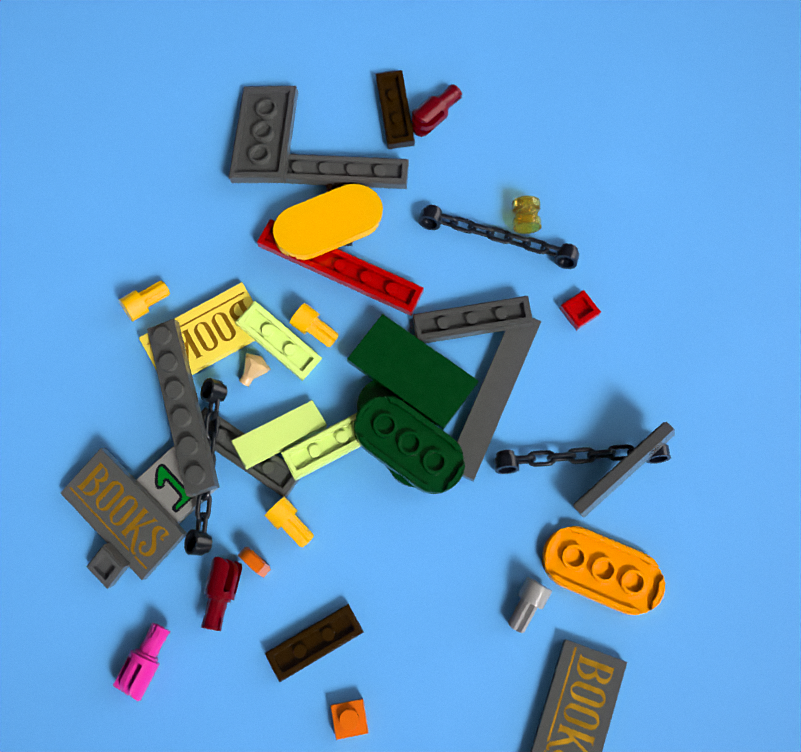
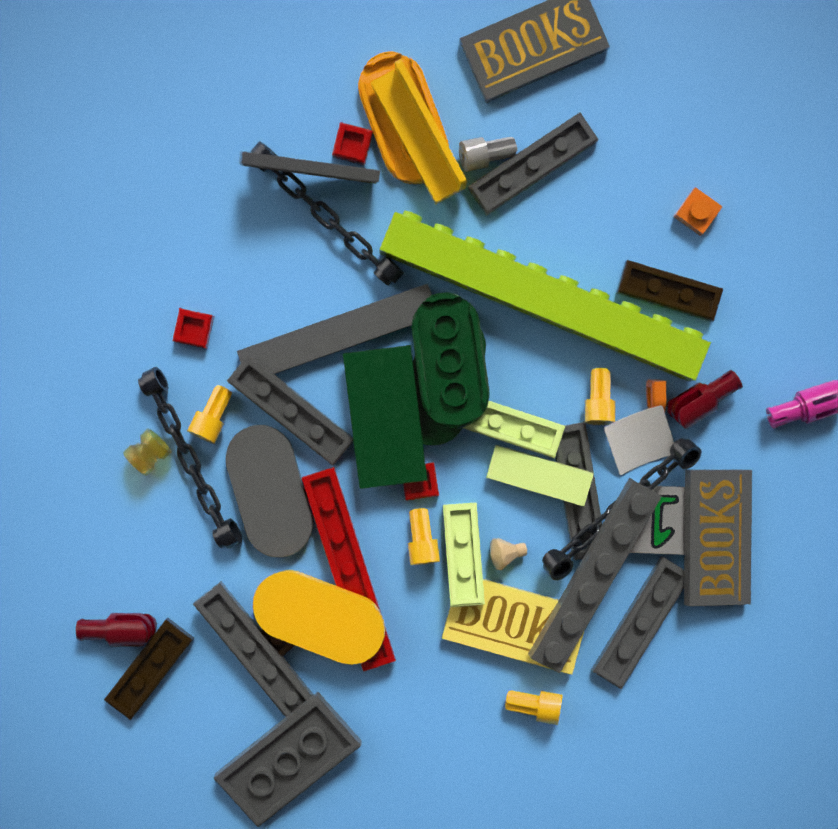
camera: 135 degrees left, 15 degrees up
(108, 565) = (765, 507): dark grey tile -> none
(124, 413) = (640, 623): none -> dark grey tile
(237, 522) = (639, 438): none -> white sticker
(340, 359) = (423, 489): none -> red tile
(389, 548) = (544, 297): none -> lime brick
(435, 264) = (269, 490): none -> dark grey tile
(490, 632) = (533, 164): none -> dark grey tile
(511, 263) = (207, 424): none -> yellow piece
(583, 566) = (419, 133): none -> yellow panel
(615, 519) = (352, 143): none -> red tile

